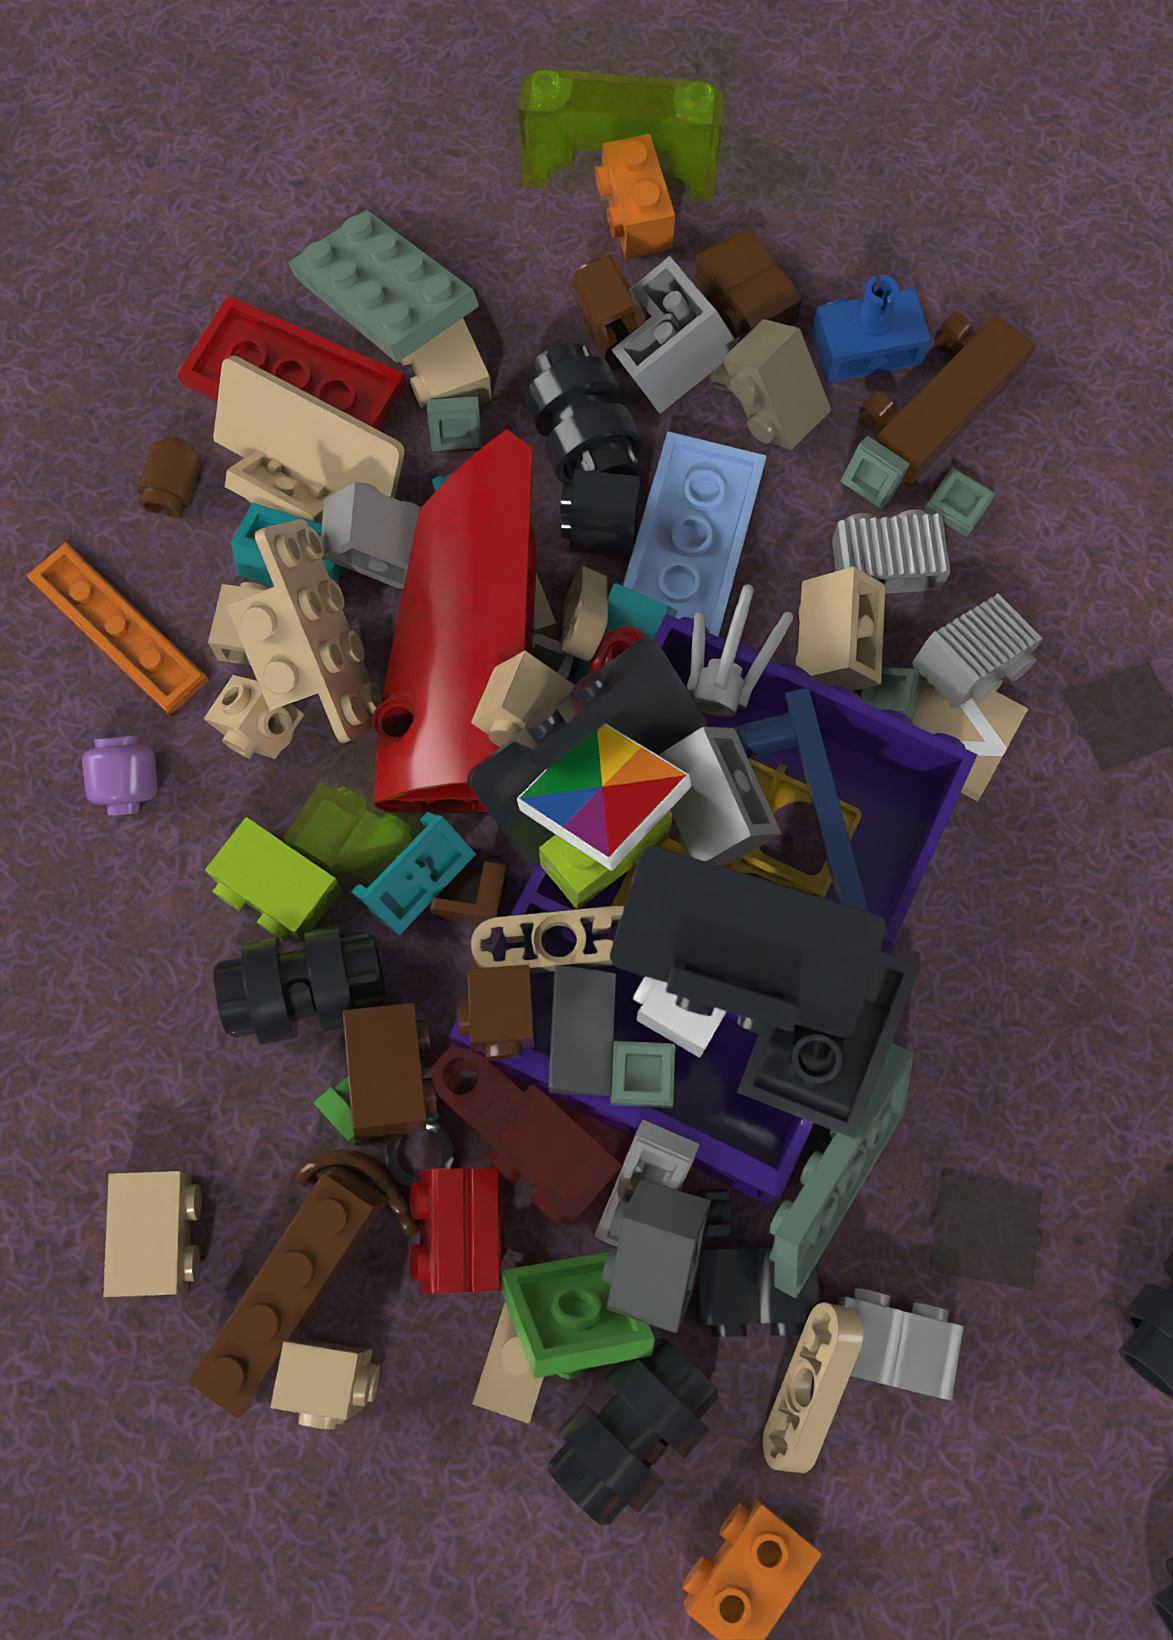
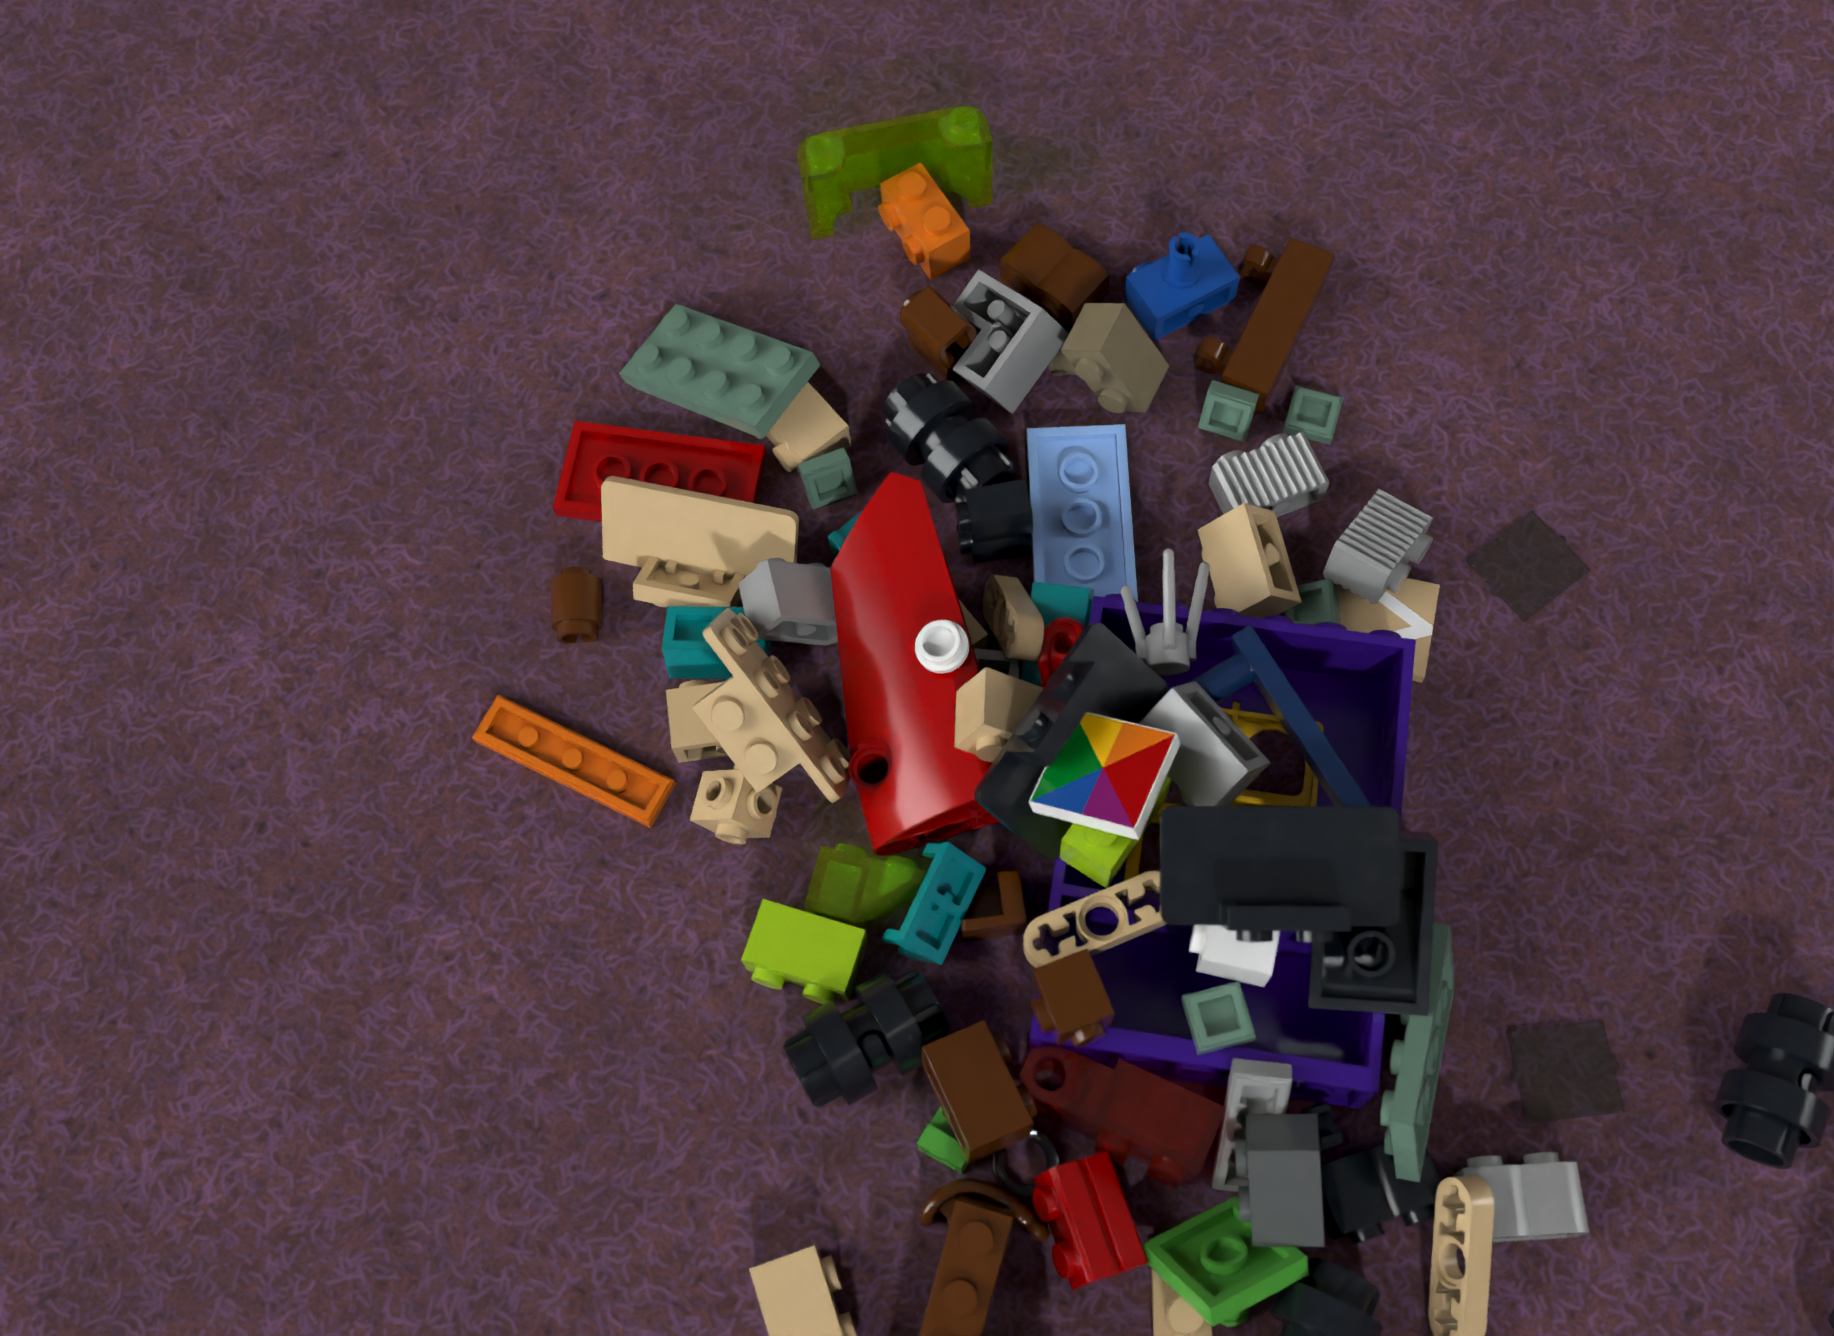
camera: 10 degrees left, 5 degrees down
(120, 774) = (627, 895): medium lavender head -> none
(494, 617) = (942, 646): none -> white plate
(582, 1031) = (1150, 996): dark grey slope -> none

